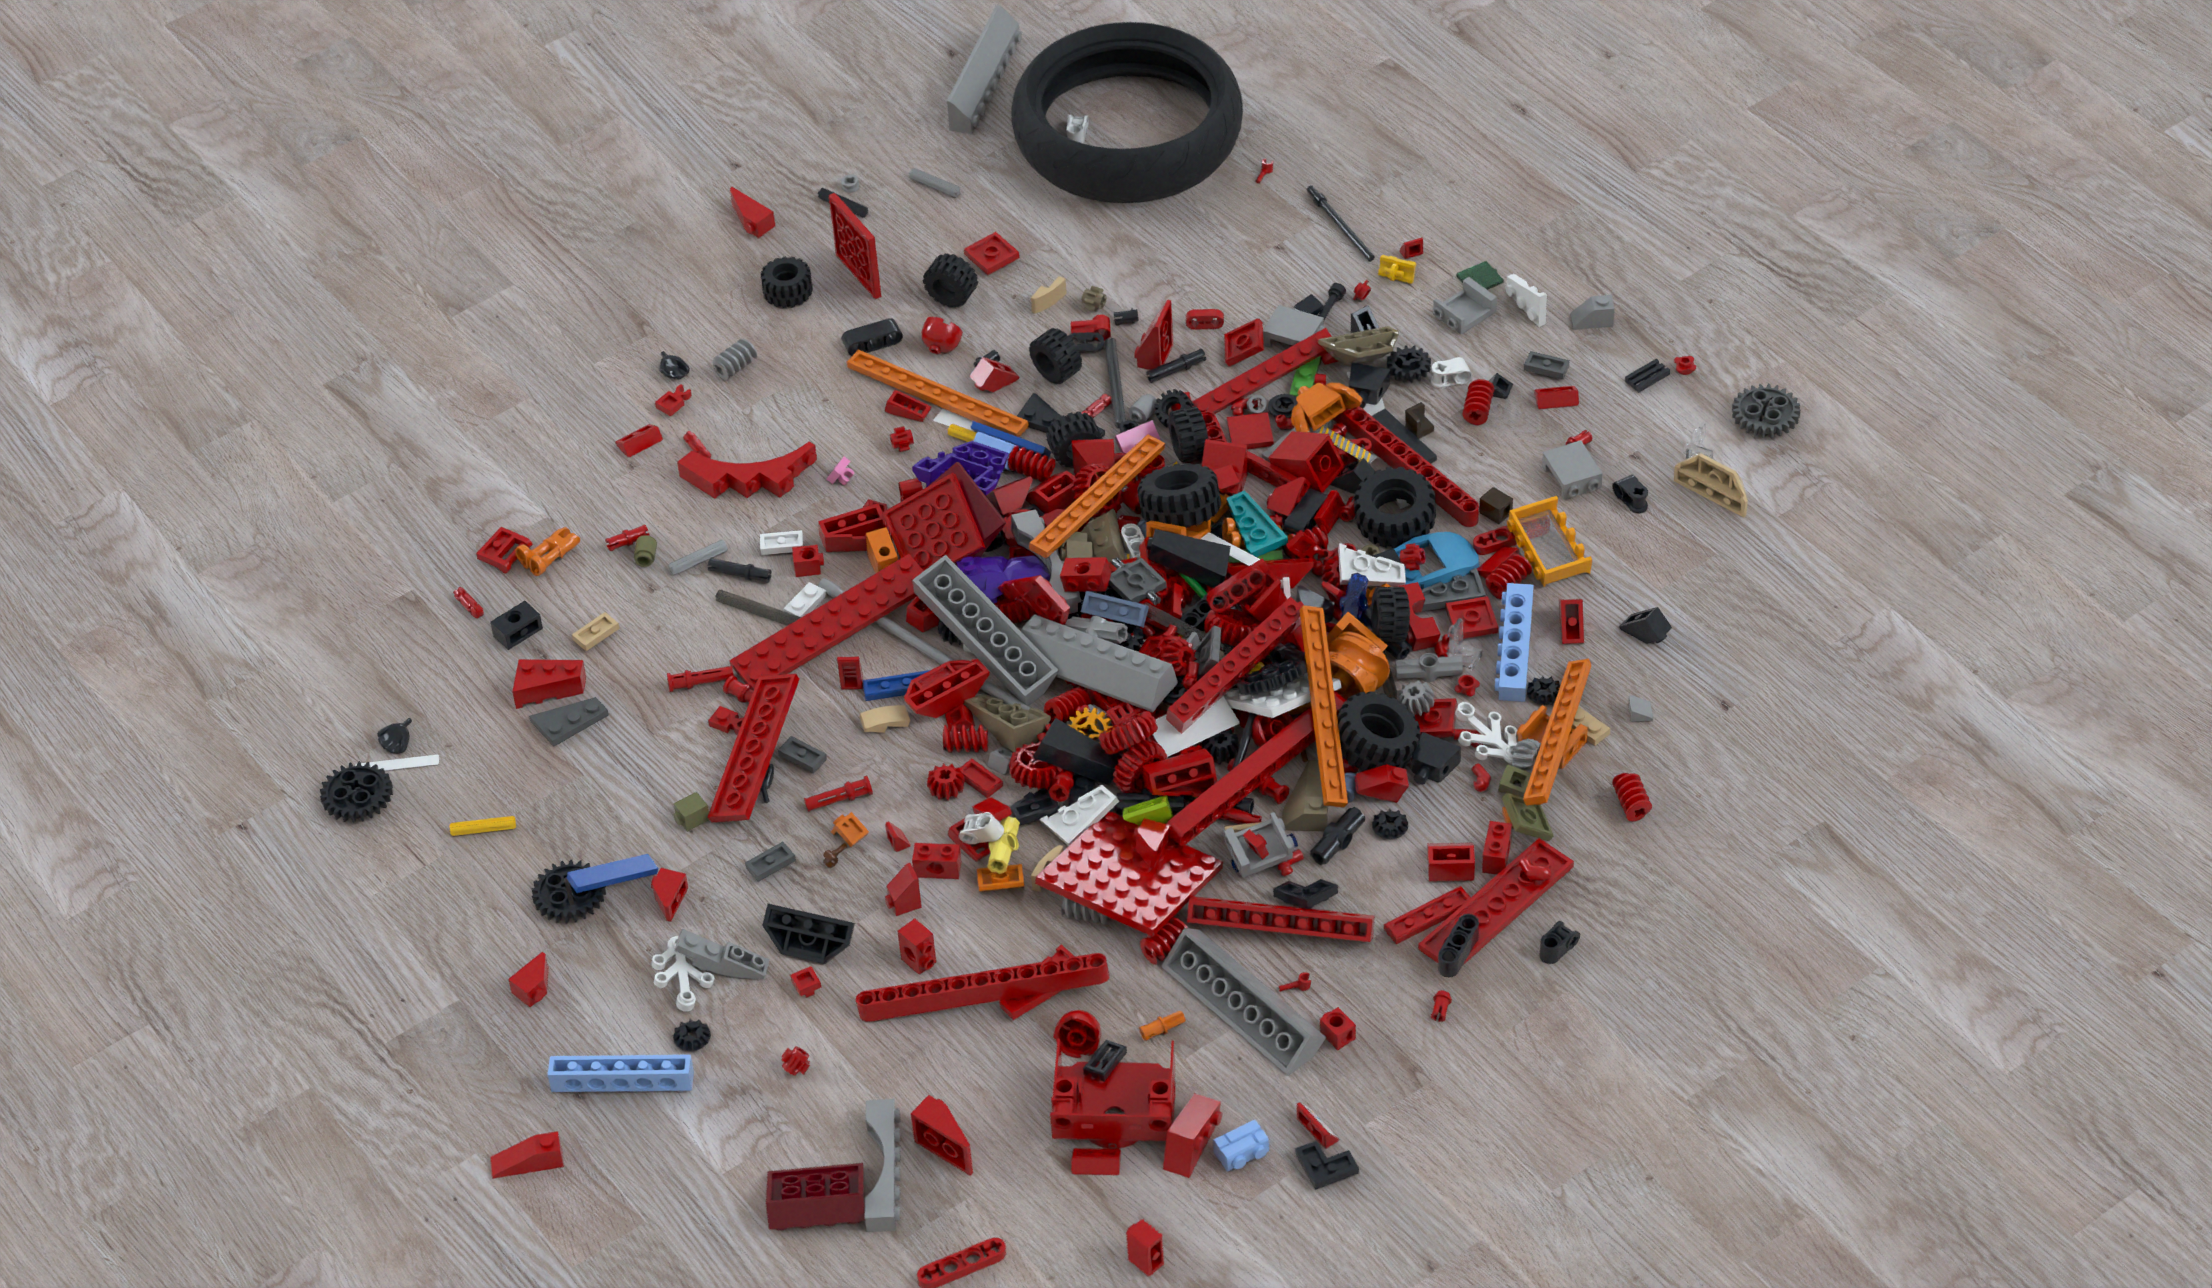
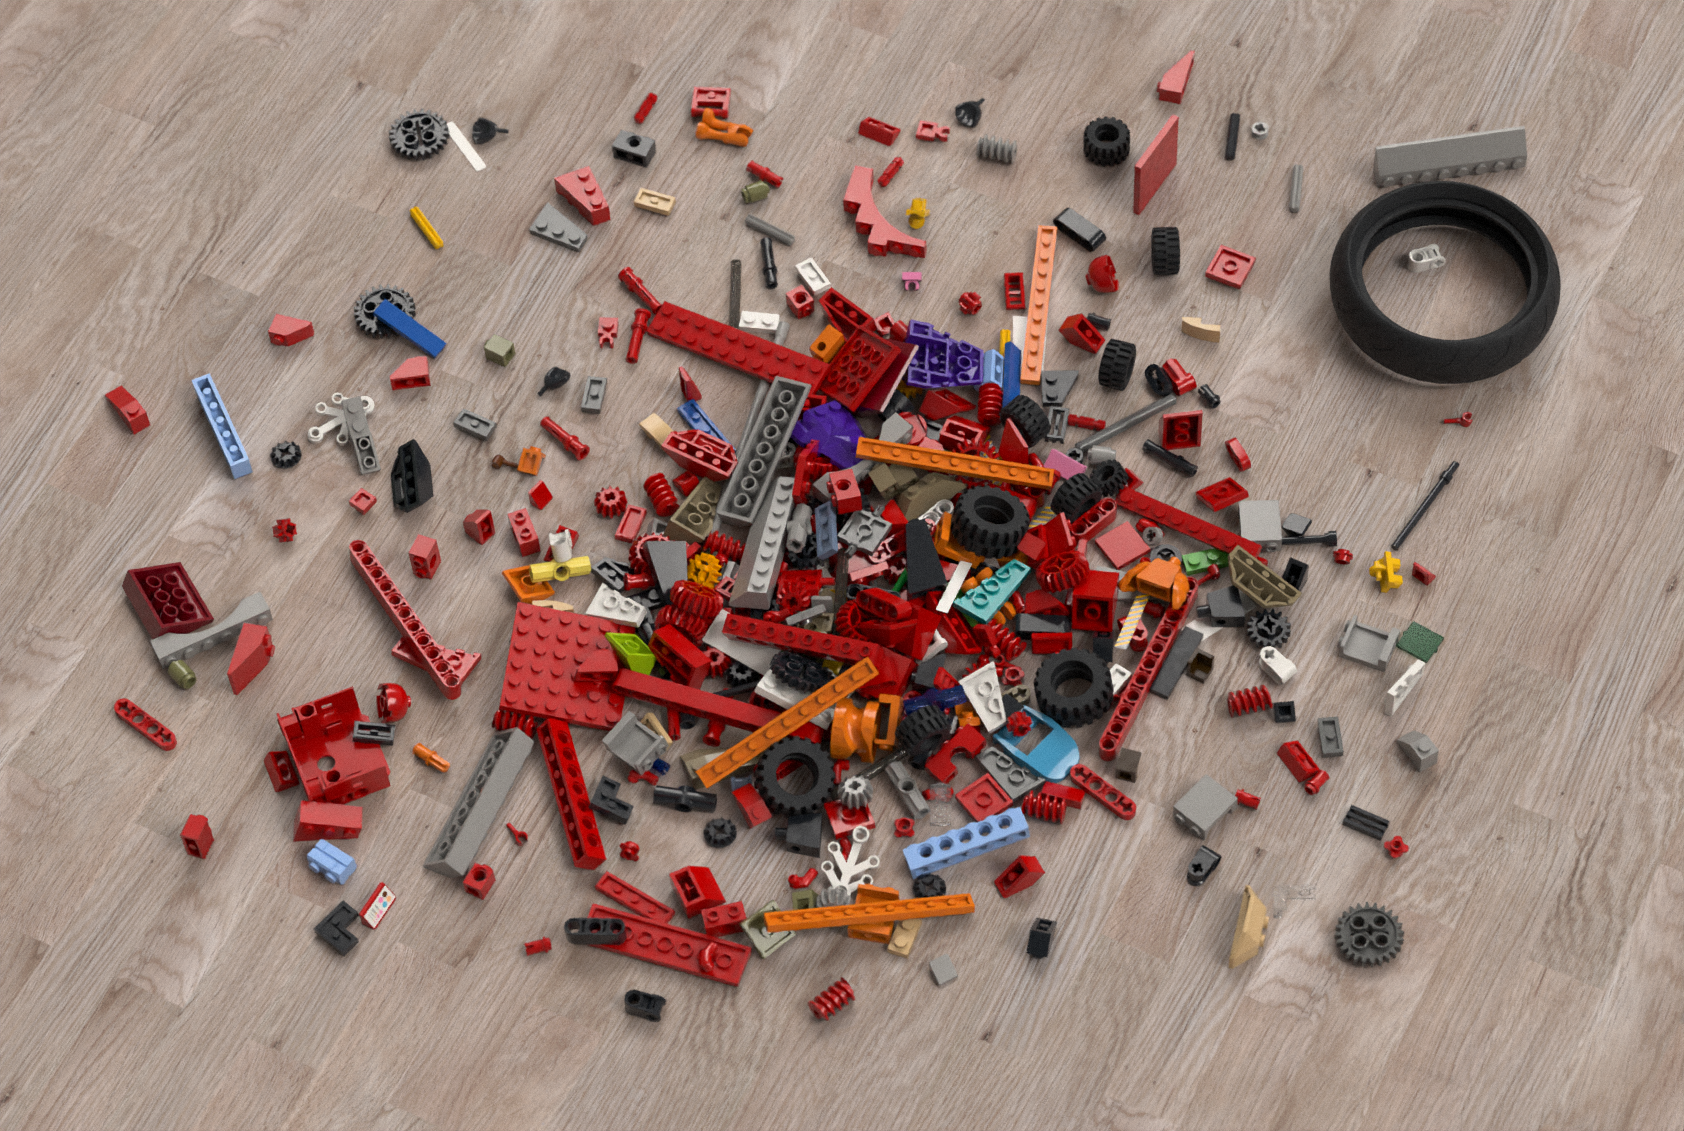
camera: 65 degrees right, 10 degrees up
(753, 748) = (575, 358): red plate -> none
(765, 436) = (917, 213): none -> yellow hips
(920, 1208) = (182, 674): none -> olive brick
(994, 807) = (593, 545): red tile -> none
(1094, 298) = (1214, 363): dark tan gear -> none
(1256, 843) = (629, 740): red plate -> none
(1269, 464) = (1062, 571): none -> red gear
(1372, 897) = (629, 851): none -> red plate
(1548, 541) = (1100, 822): window -> none
(1590, 393) = (1312, 786): none -> red pin

